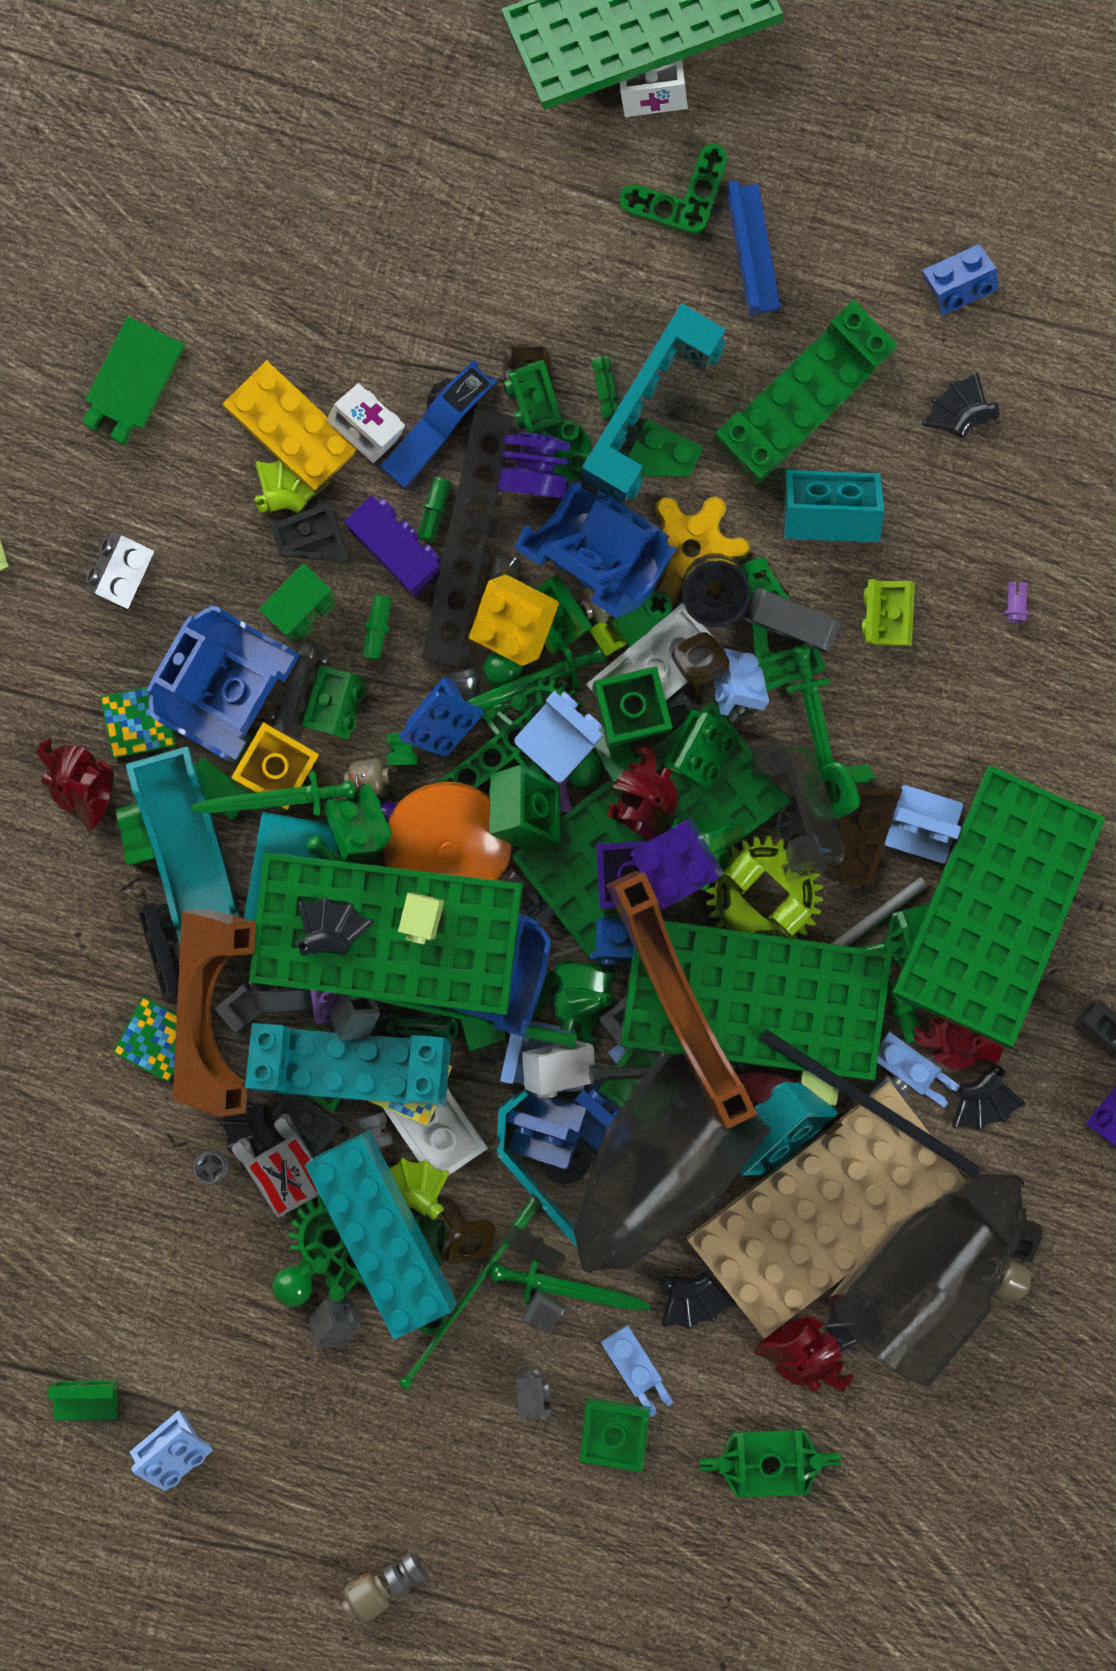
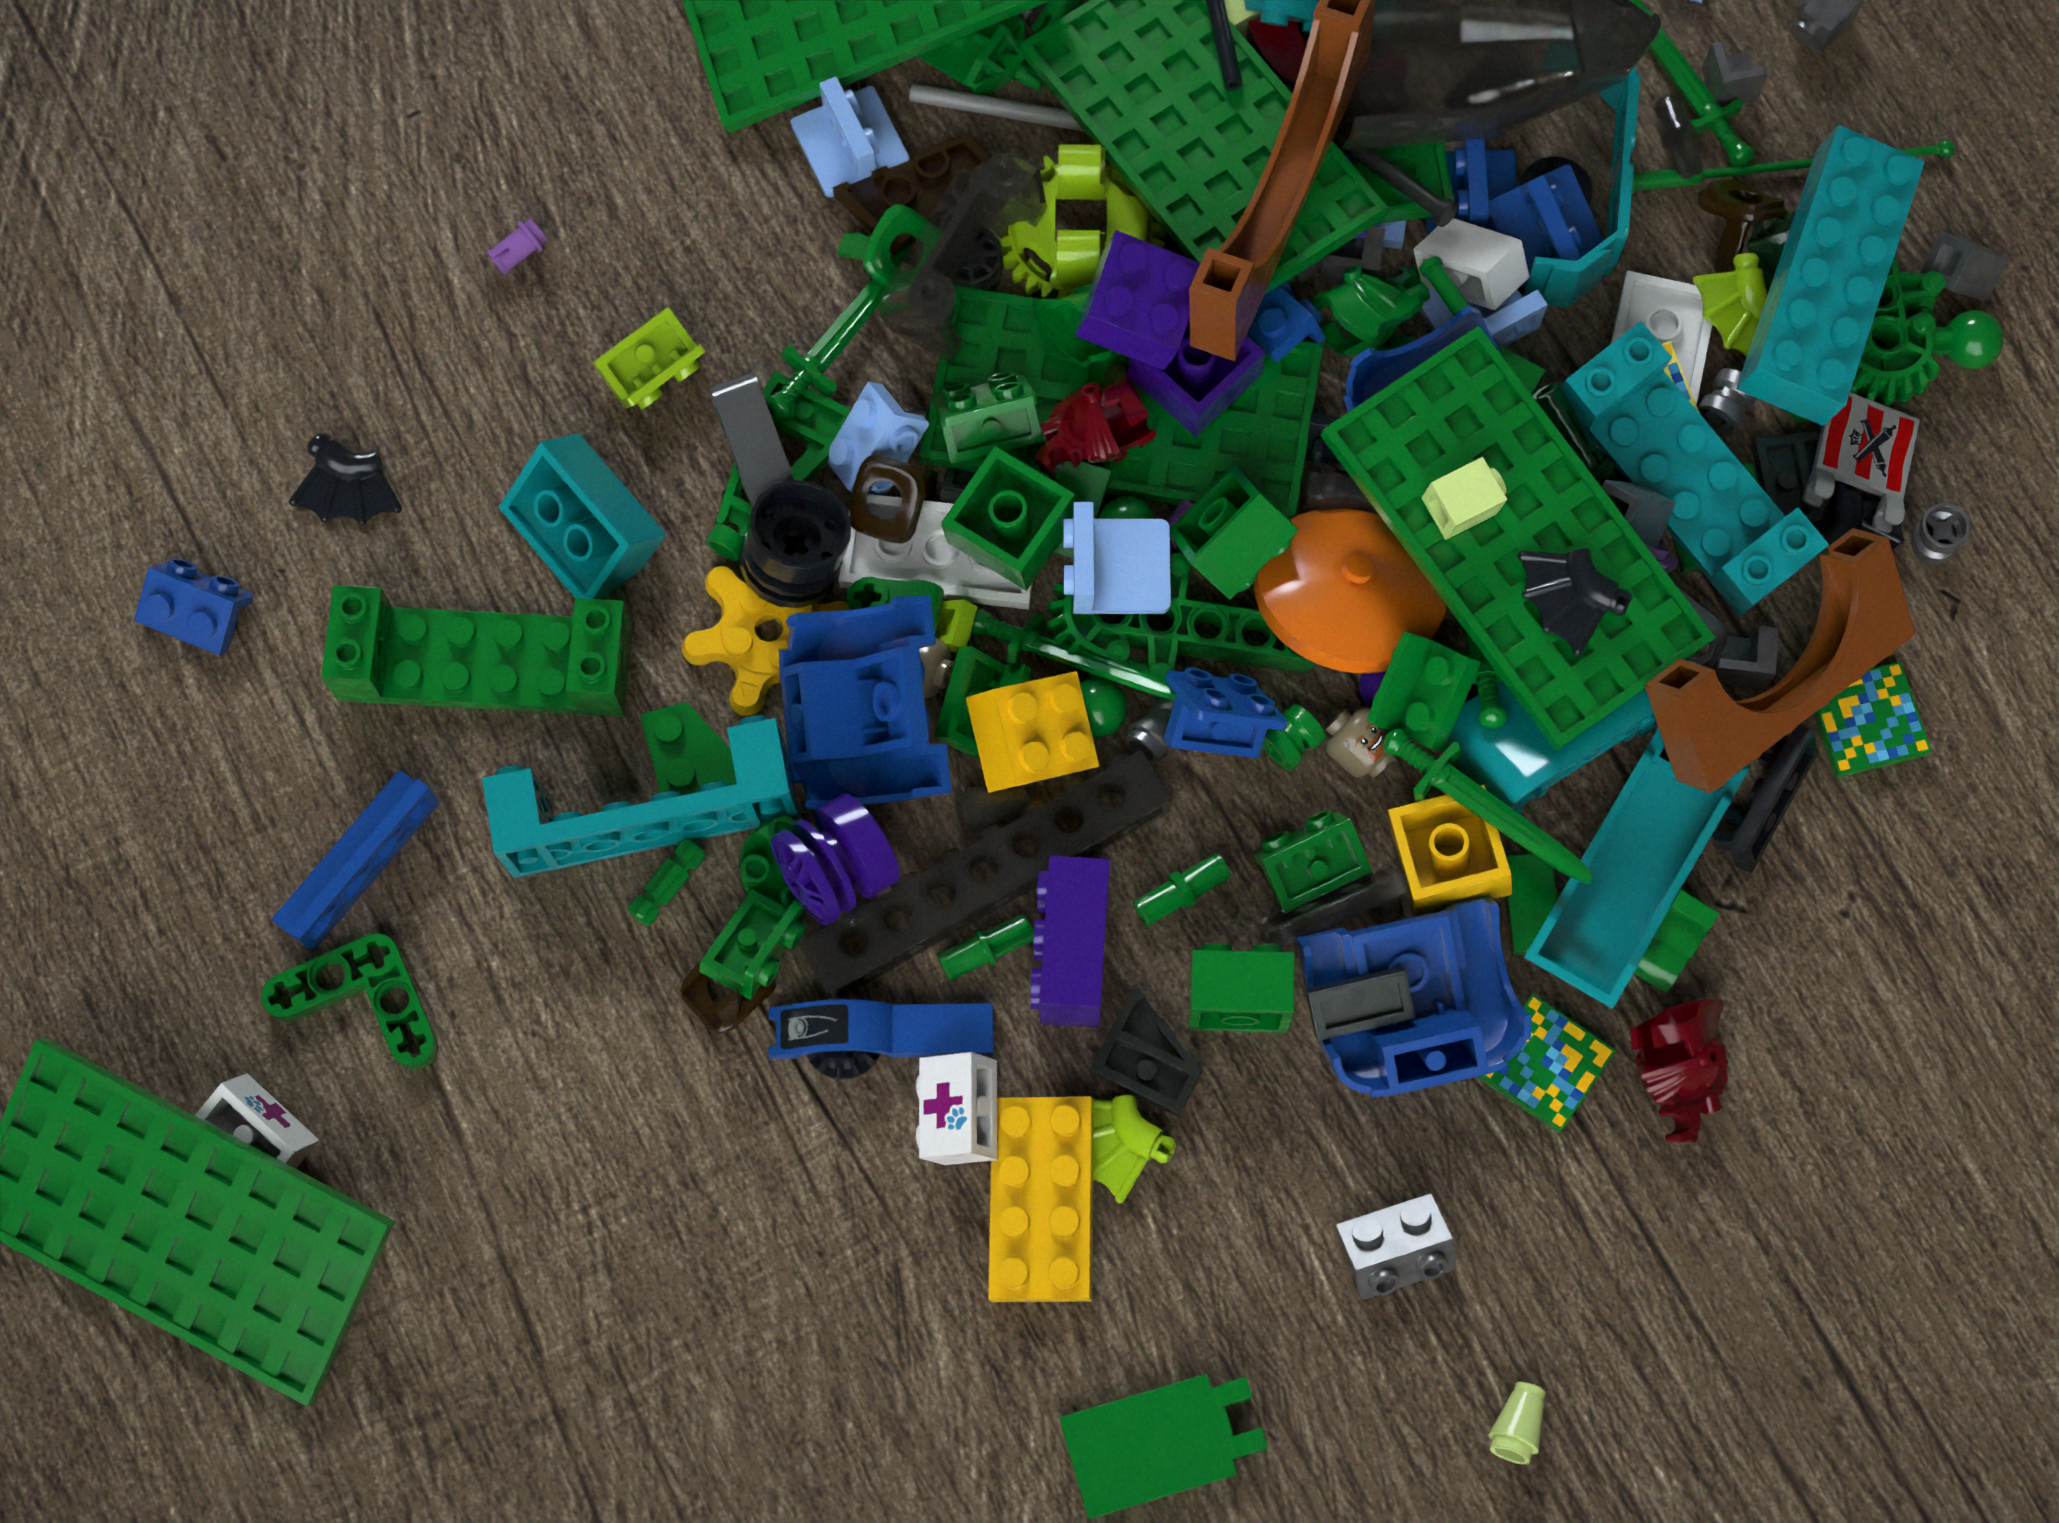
camera: 130 degrees left, 15 degrees down
(239, 652) = (1360, 1003): none -> pearl dark grey tile

